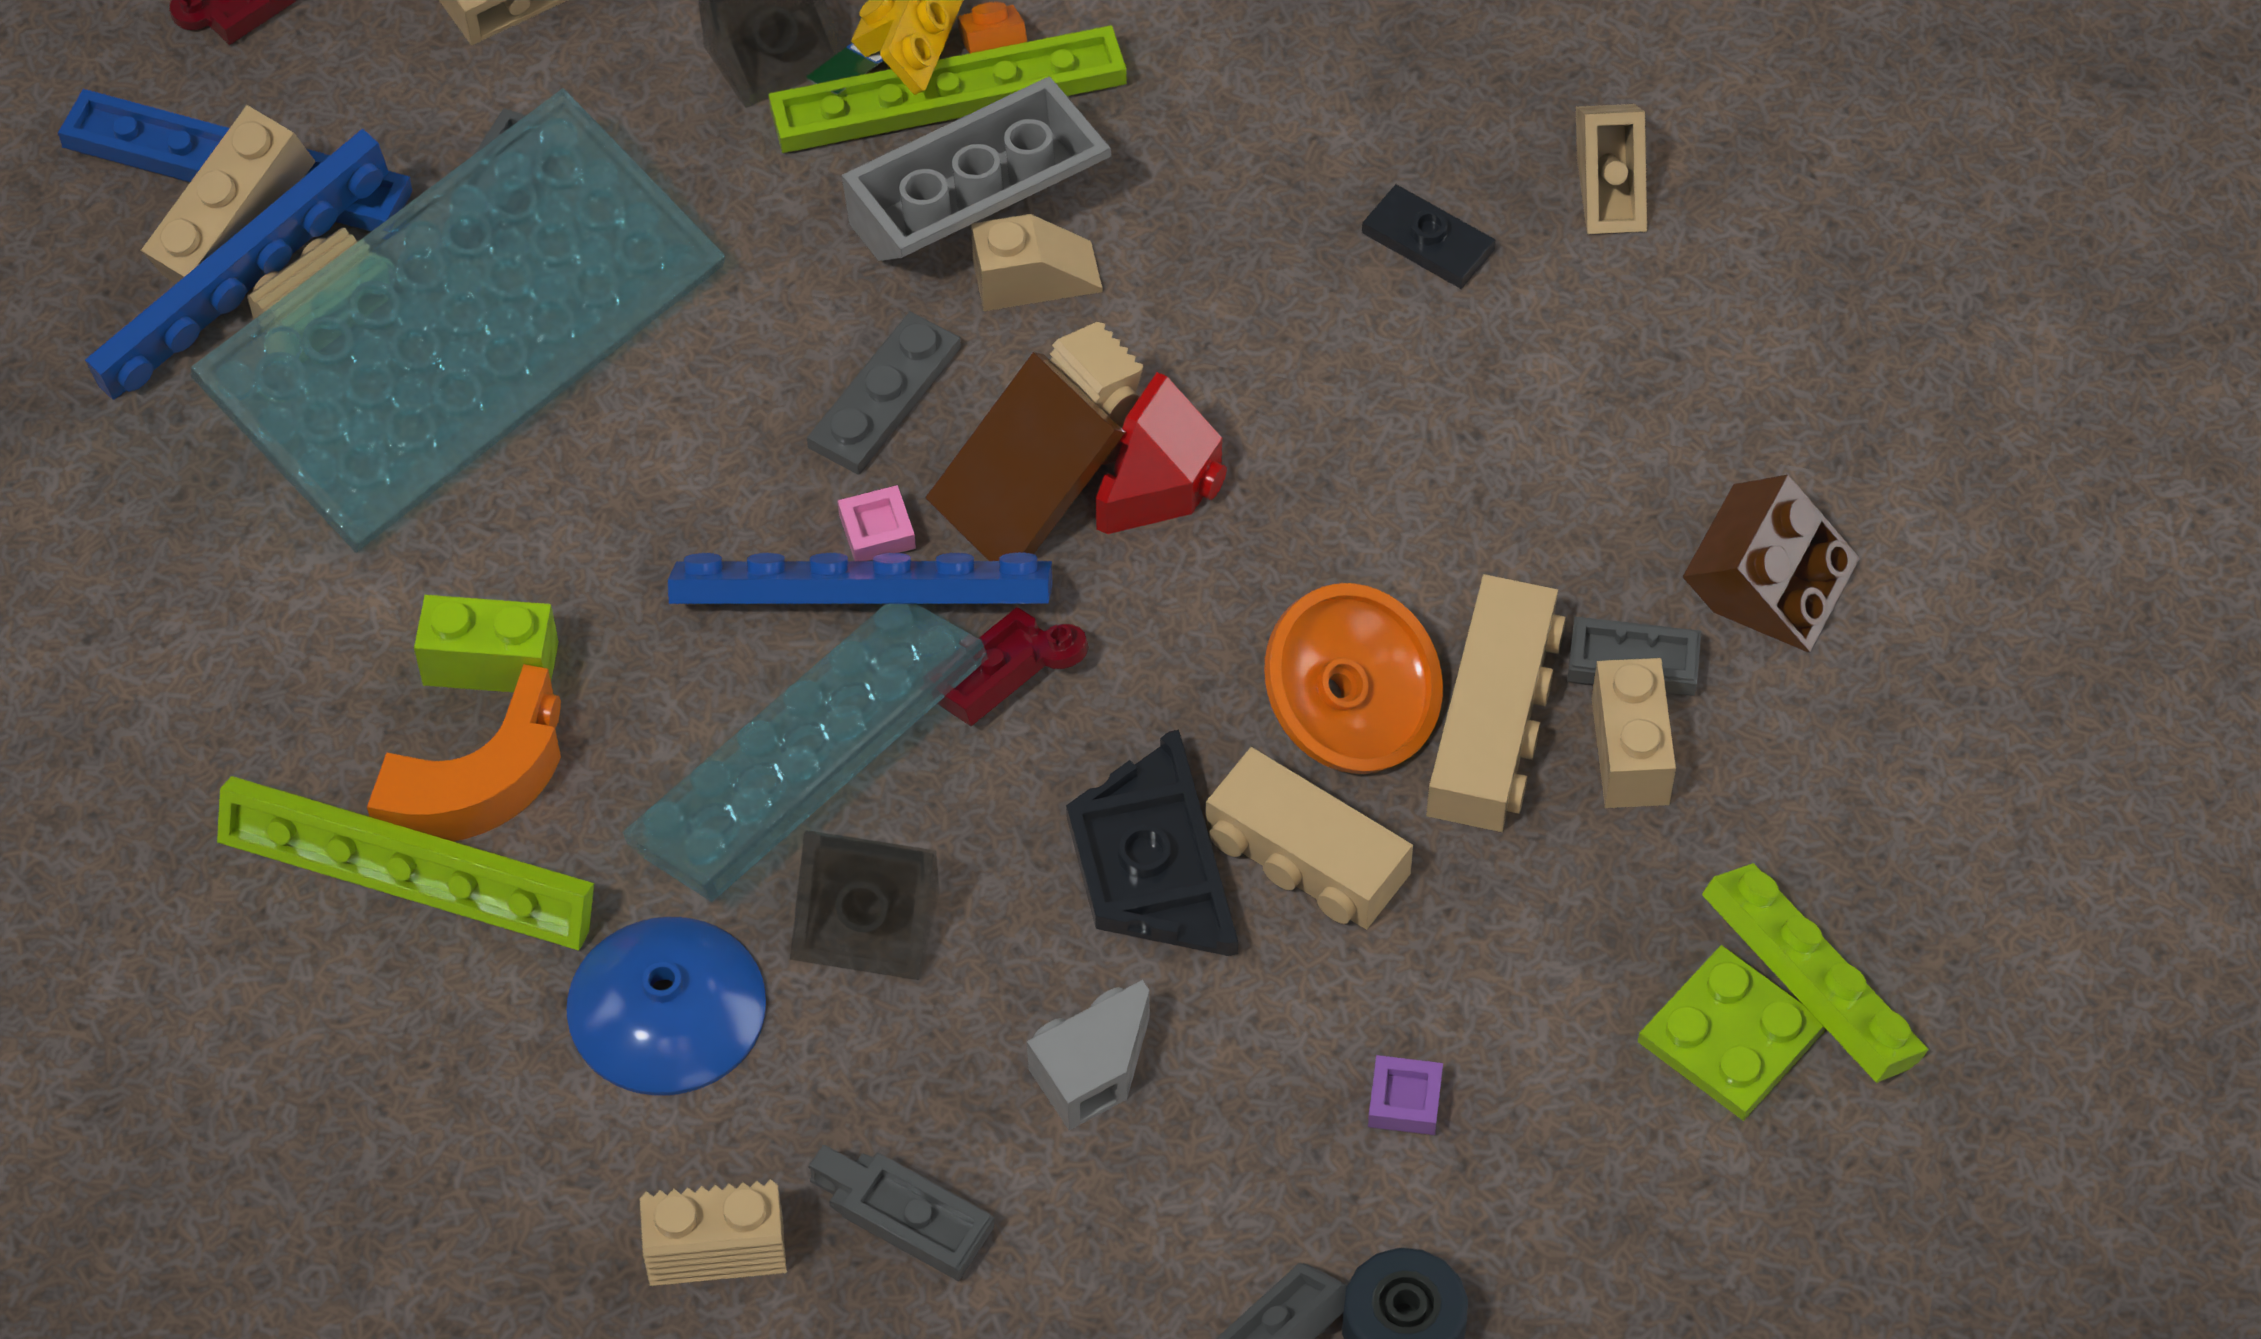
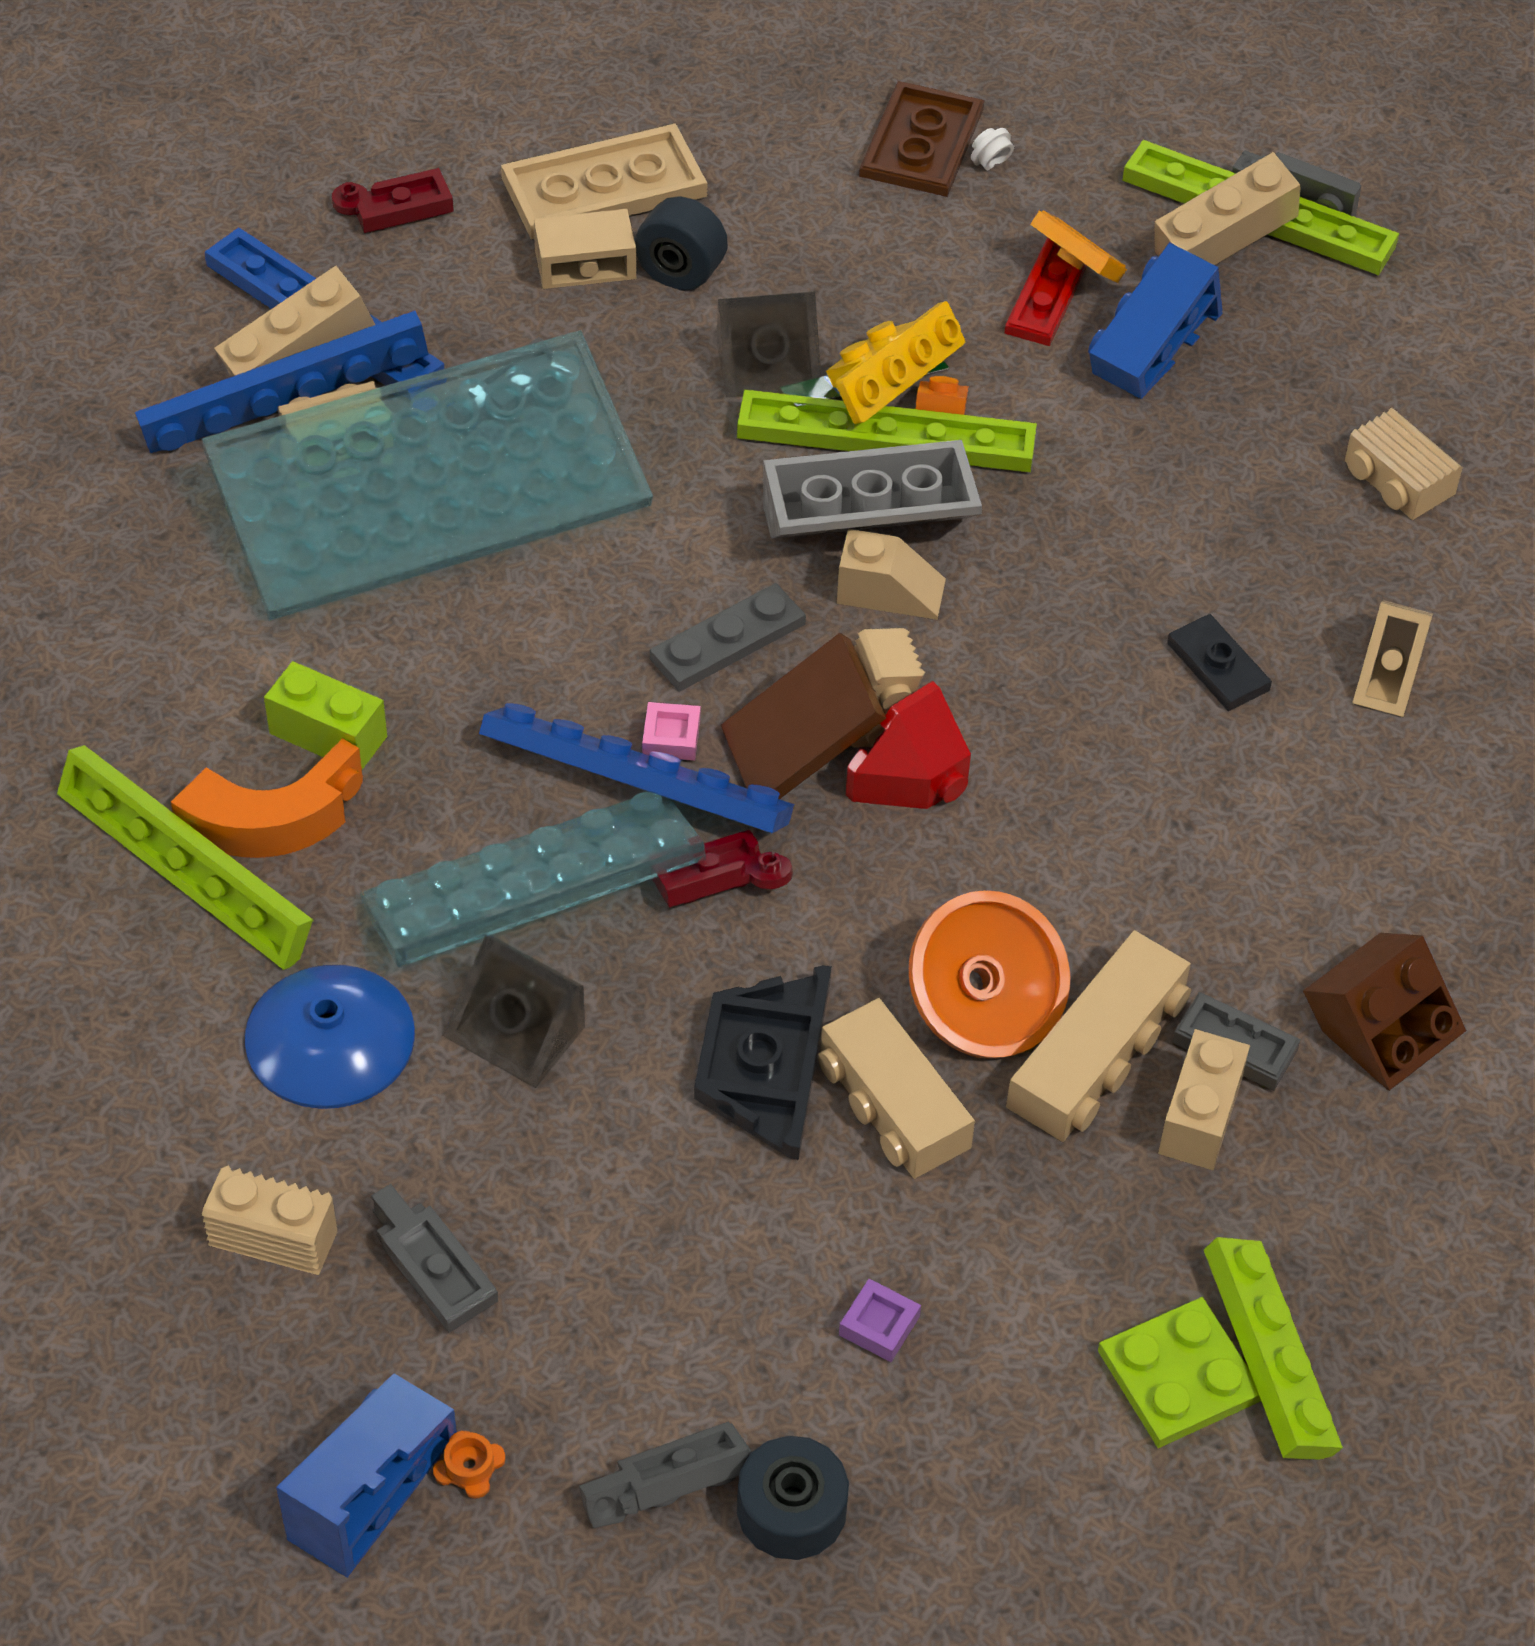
camera: 20 degrees right, 5 degrees down
(1091, 1057) = (641, 1193): light grey slope -> none

